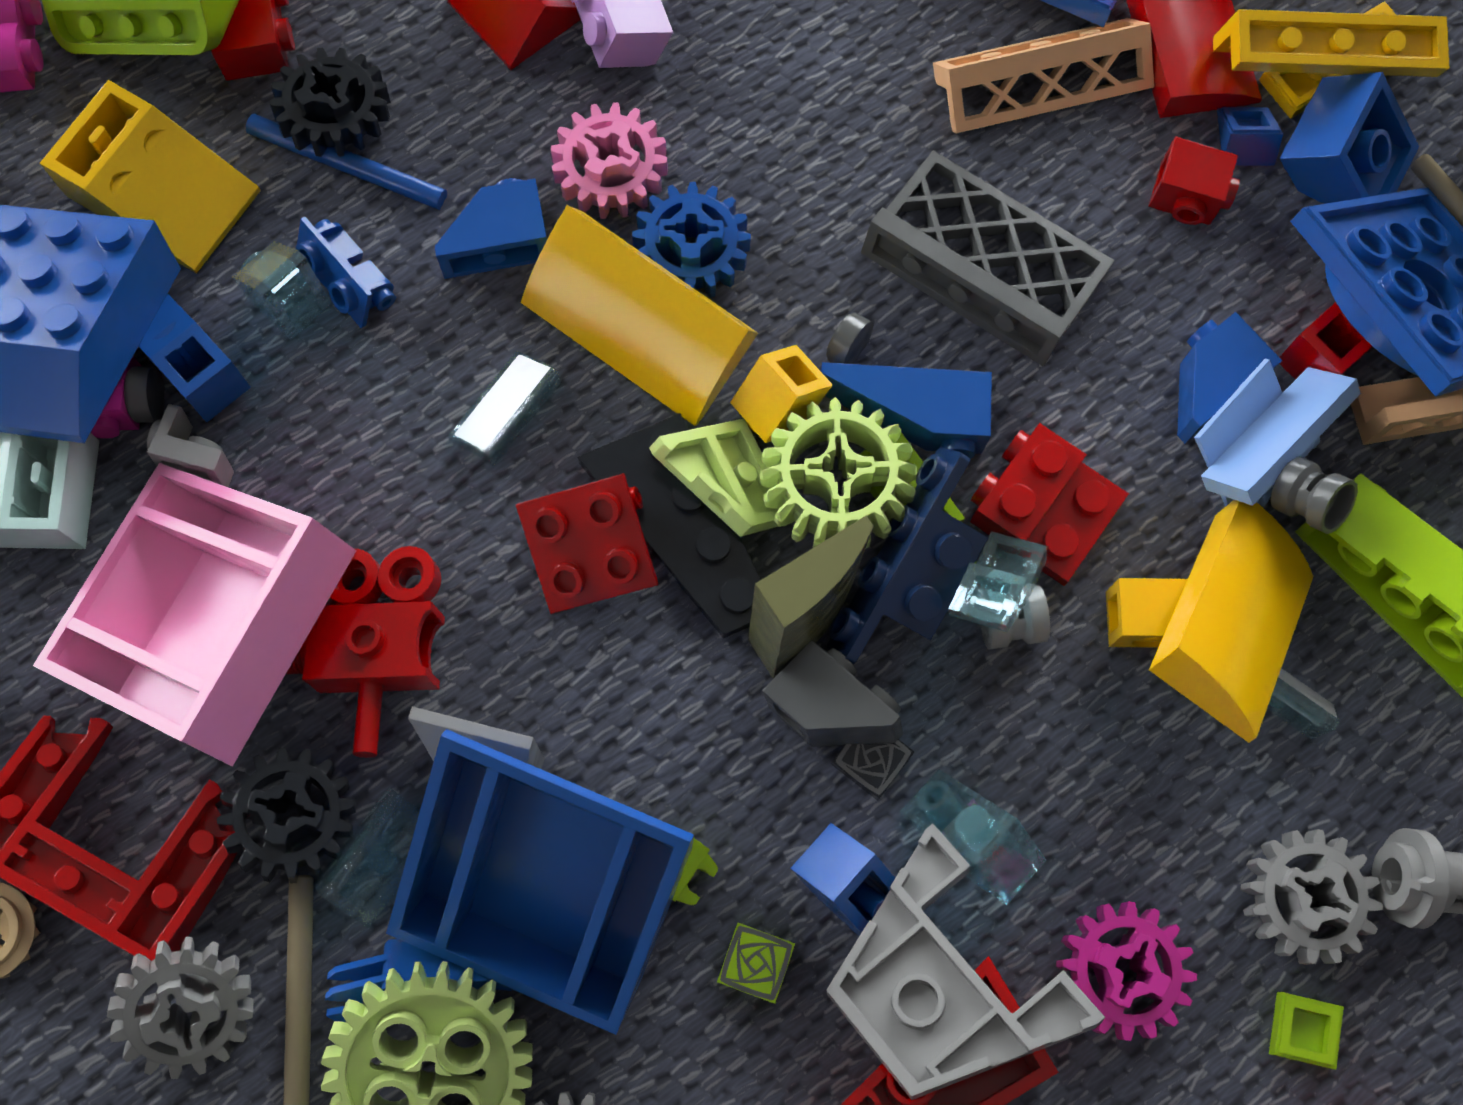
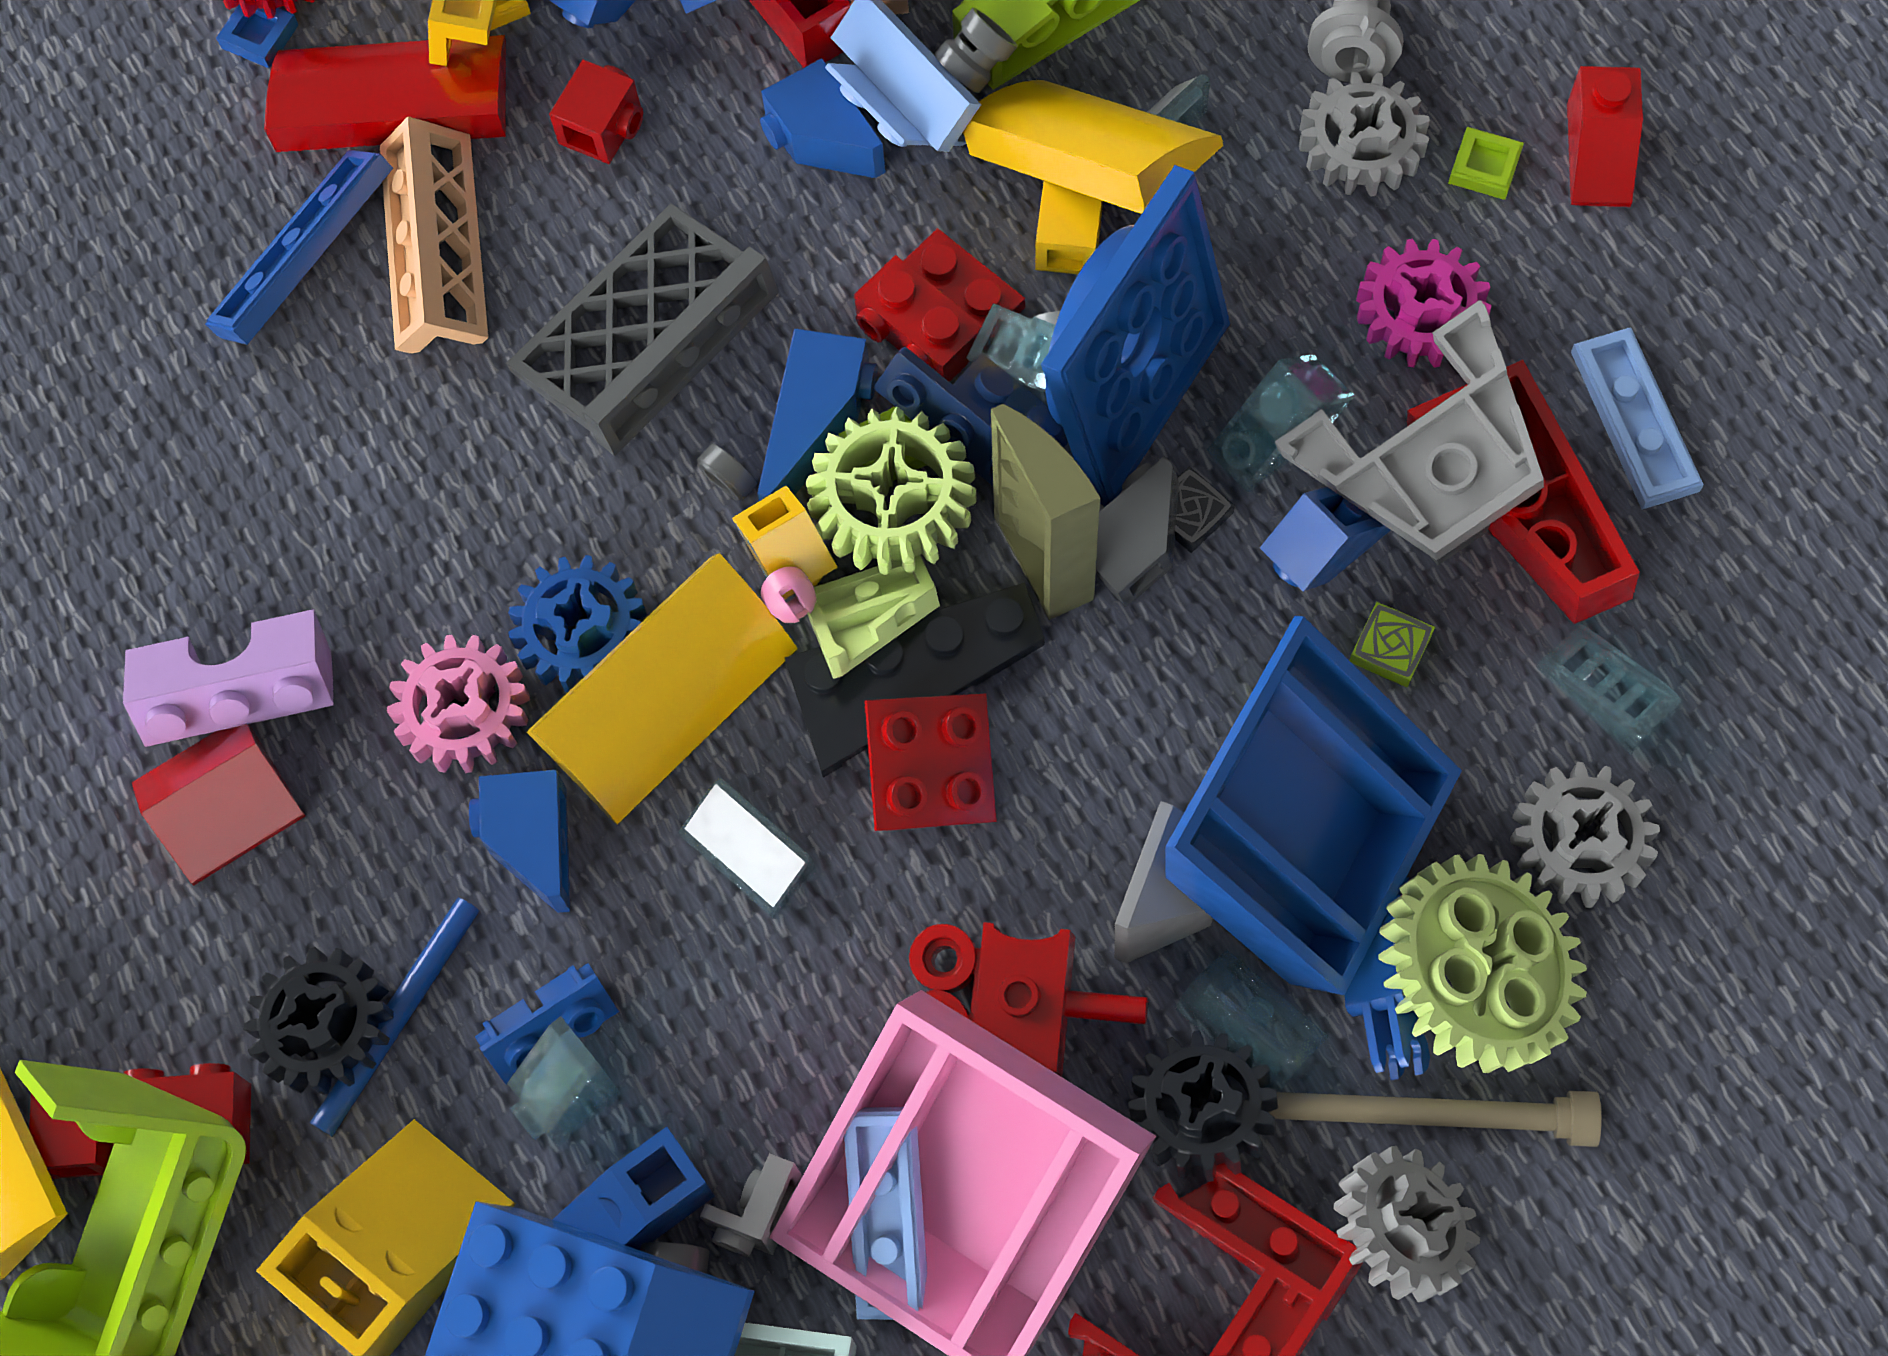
camera: 75 degrees left, 5 degrees down
(174, 560) = (895, 1221): none -> light blue tile
(728, 402) = (781, 582): none -> bright pink hinge
(1014, 669) = (1135, 334): none -> blue piece
(1250, 134) = (544, 53): blue slope -> none

